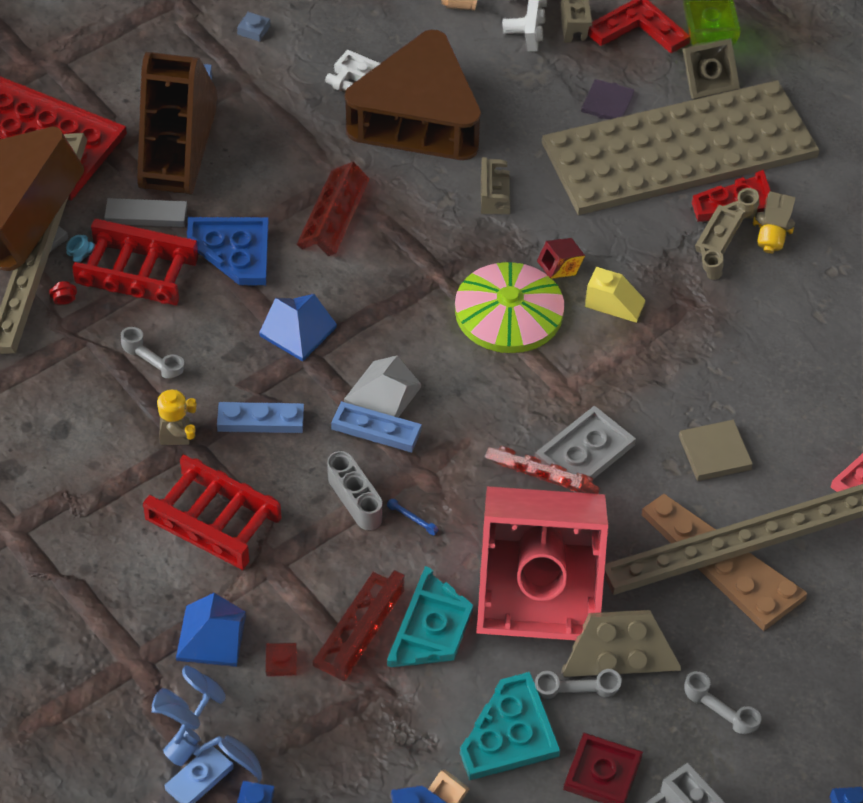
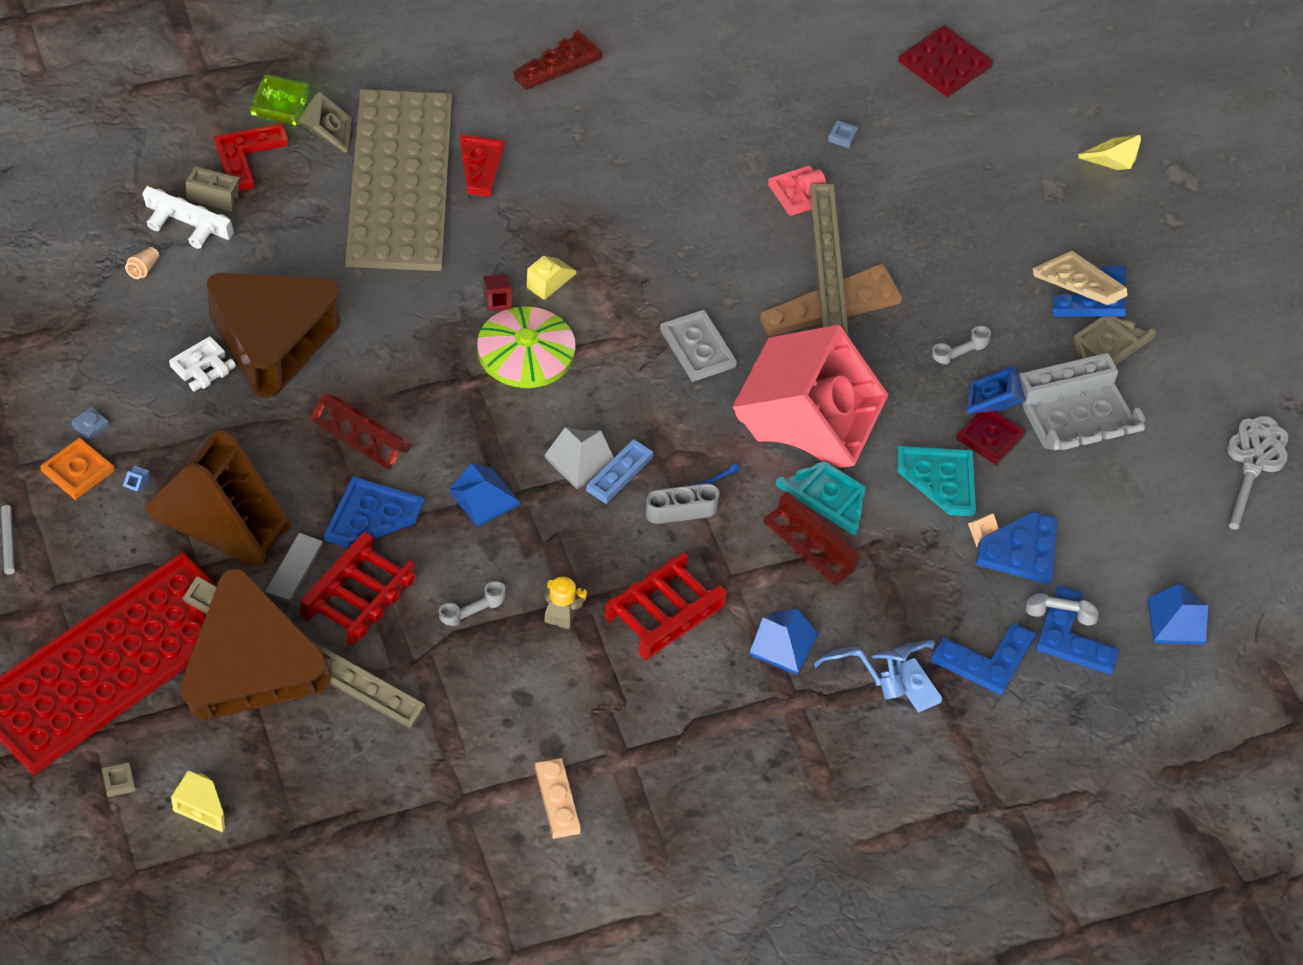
camera: 75 degrees left, 0 degrees up
(63, 293) = (369, 653): red plate -> none
(79, 247) = (312, 623): medium azure plate -> none
(100, 16) = (7, 537): none -> light grey bar
(199, 34) = (77, 468): none -> orange tile
(260, 417) = (573, 547): medium blue plate -> none
(281, 659) = (825, 602): clear red plate -> none
(494, 187) = (388, 314): dark tan hinge -> none
(532, 466) = (726, 367): clear red wing -> none
(606, 685) = (919, 408): light grey bar -> none
(607, 100) = (320, 206): clear purple piece -> none
(621, 643) = (897, 382): dark tan wing -> none
(655, 749) = (995, 392): none -> blue slope
(715, 450) = (728, 269): dark tan tile -> none
(722, 229) = (518, 184): dark tan plate -> none
(775, 221) = (521, 143): piece -> none

